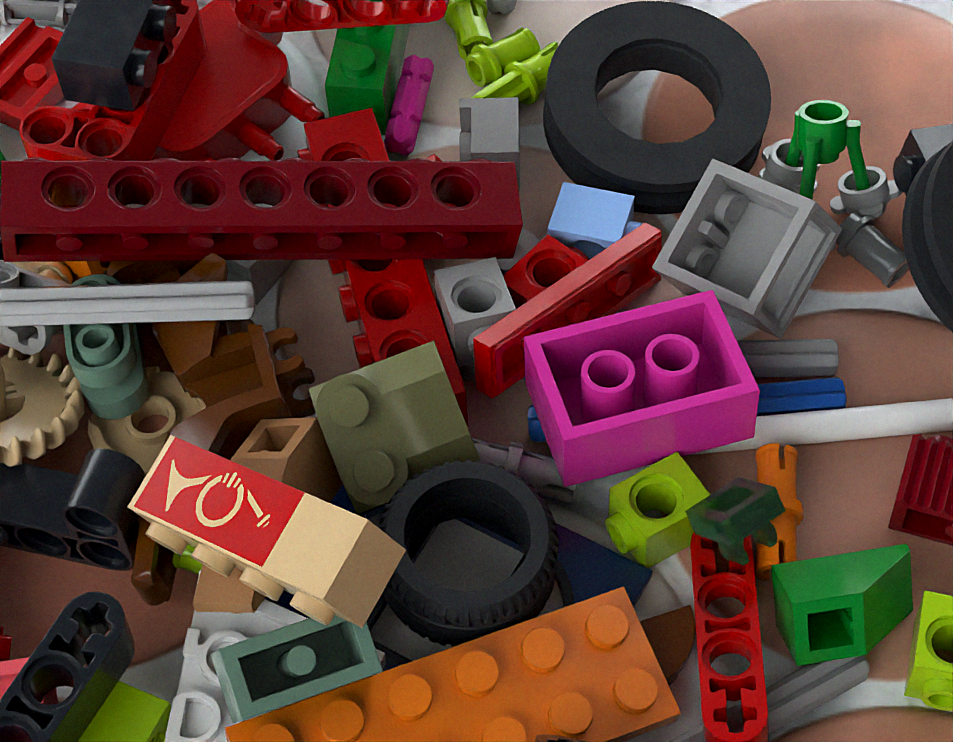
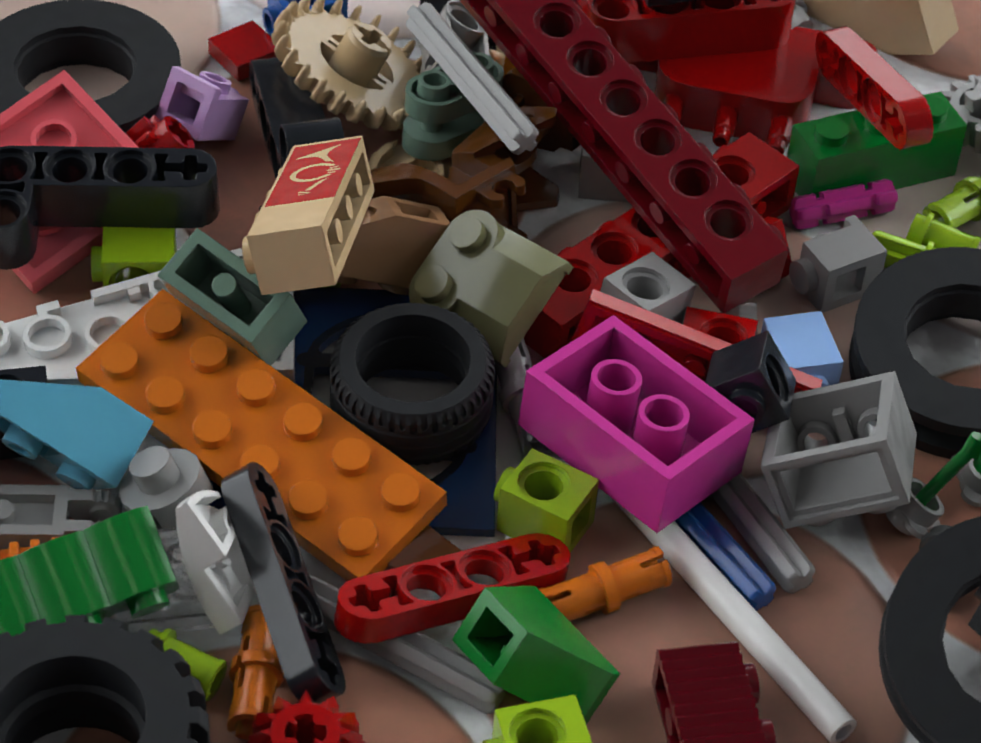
camera: 55 degrees right, 10 degrees down
(643, 271) = (754, 379): none -> black brick
(735, 513) = (555, 529): clear green tile -> none

